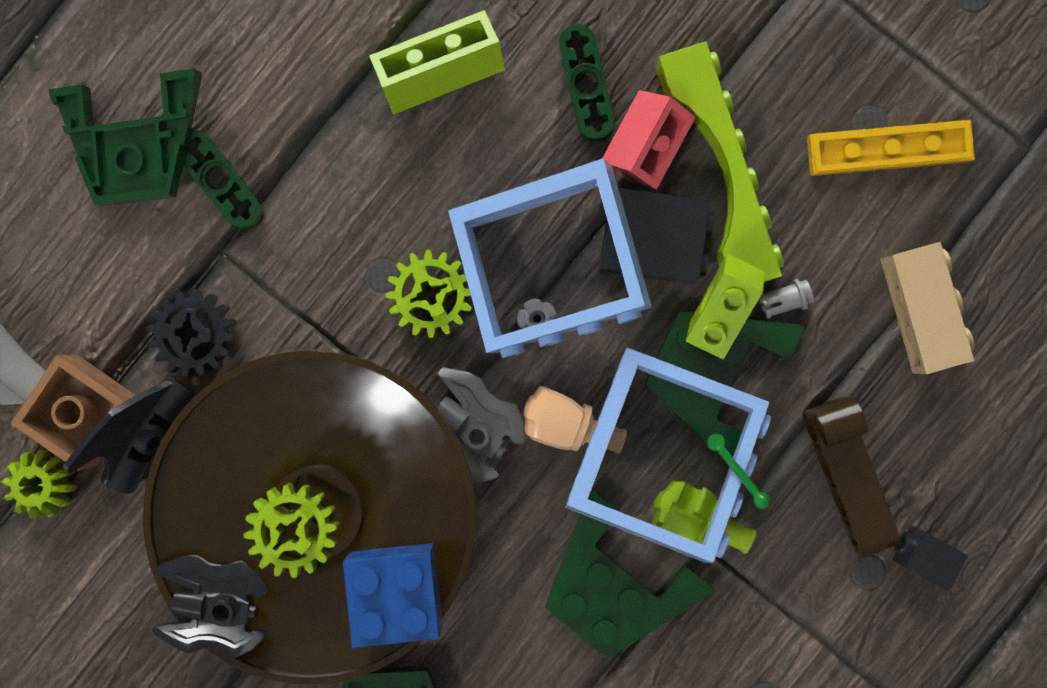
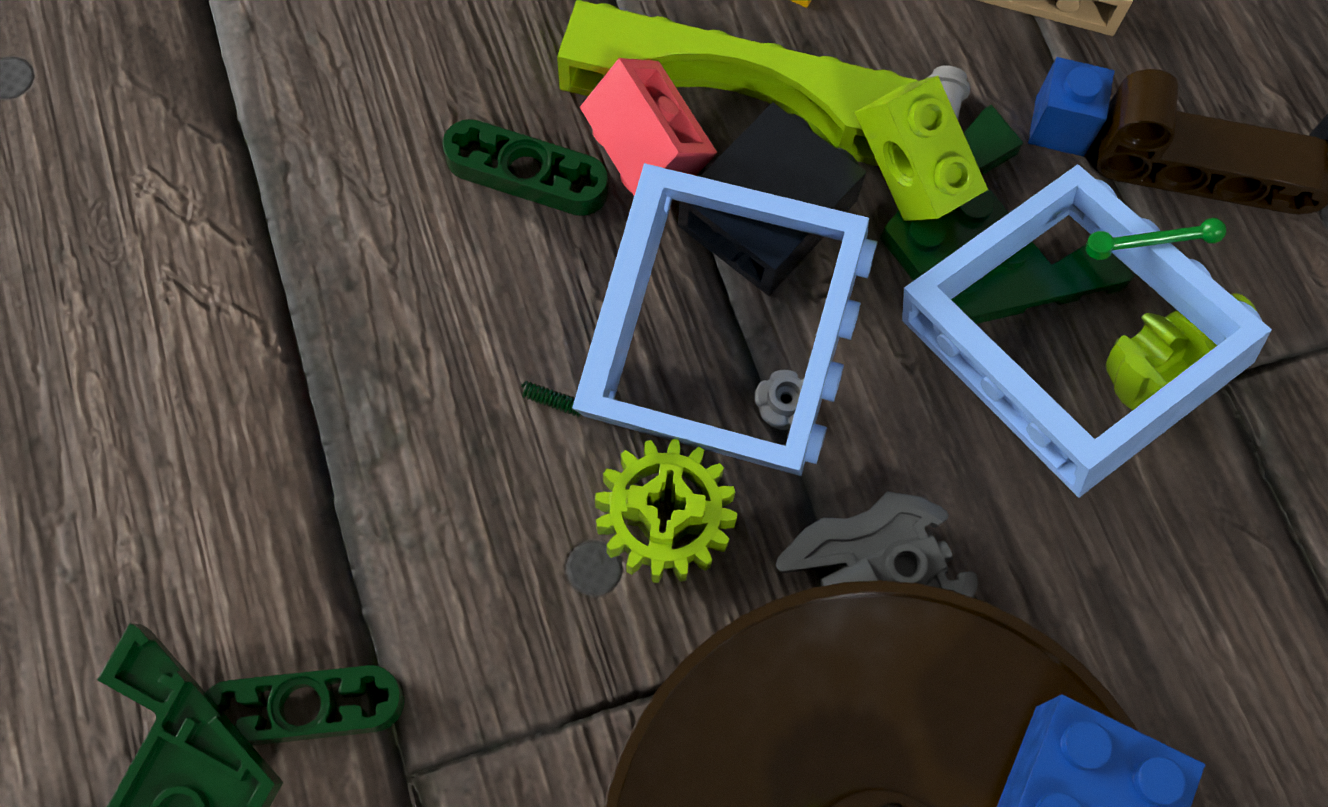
camera: 65 degrees left, 20 degrees down
(438, 62) = (370, 308): lime brick -> none
(462, 198) = (561, 396): none -> dark green leg
(563, 422) = (941, 447): light nougat piece -> none
(605, 600) = (1226, 547): dark green wing -> none
(830, 375) = (1071, 106): none -> blue brick

